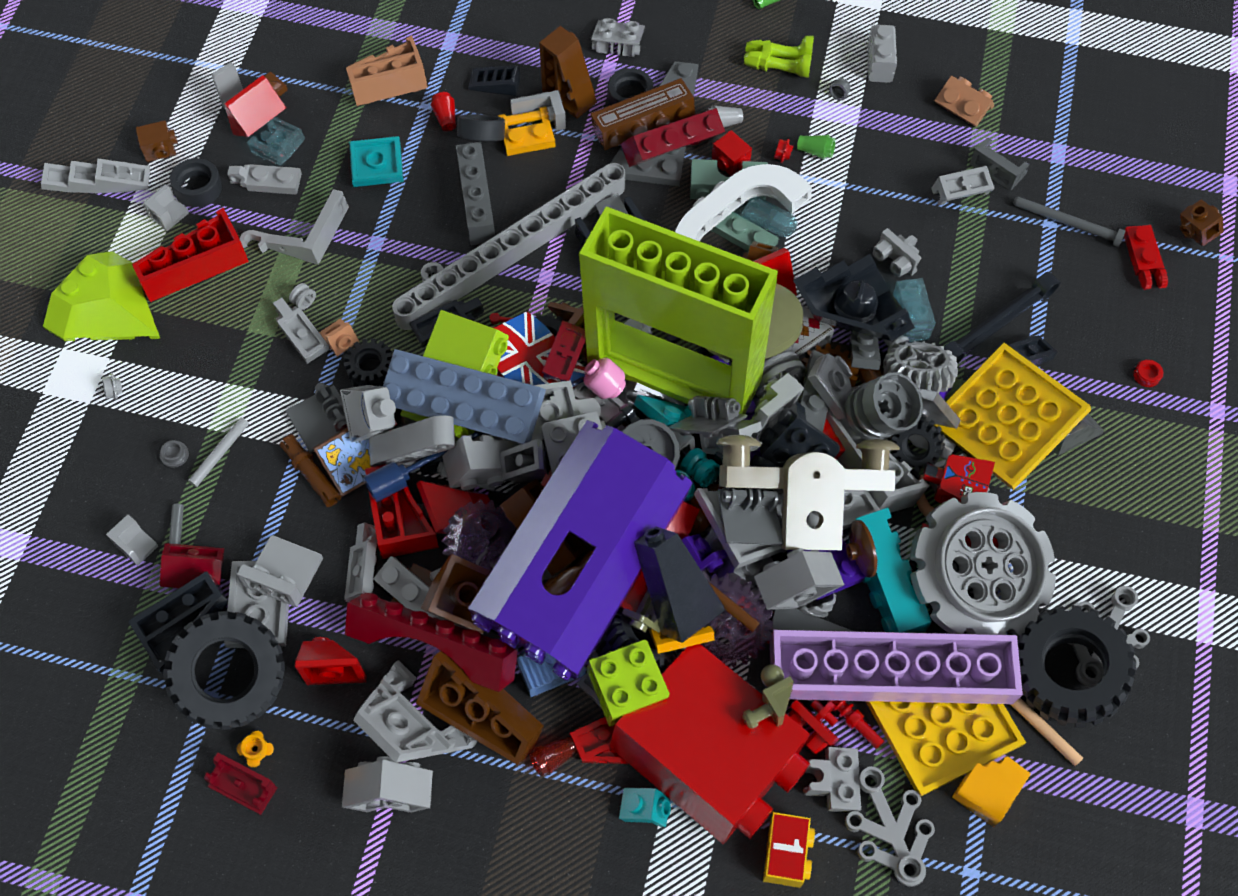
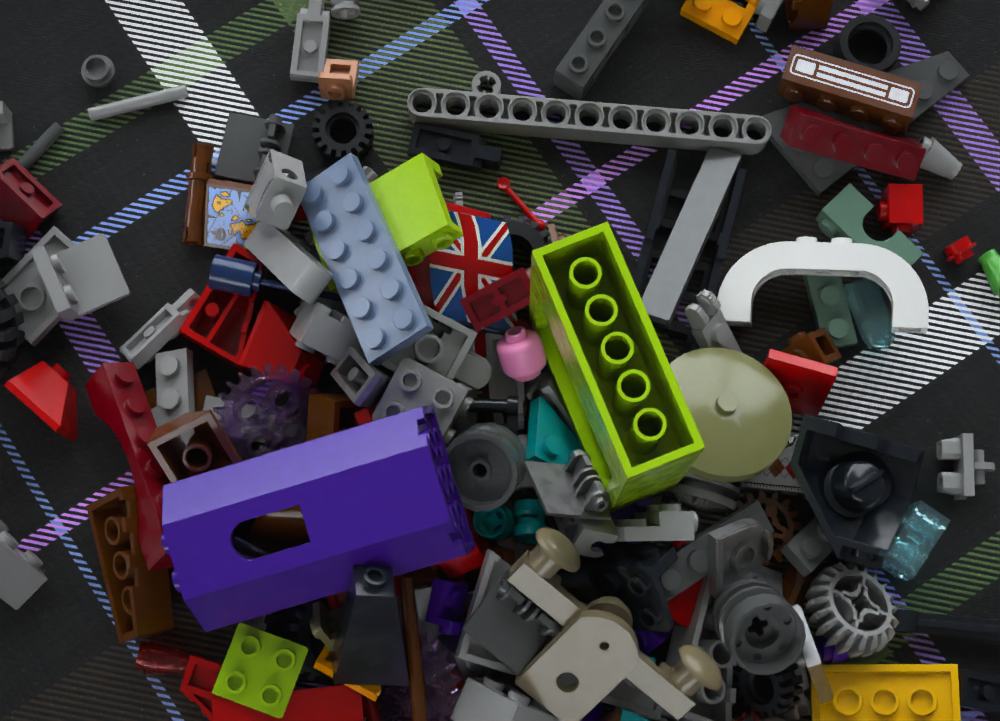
camera: 40 degrees right, 15 degrees up
(400, 727) = (48, 514): light grey wing -> none

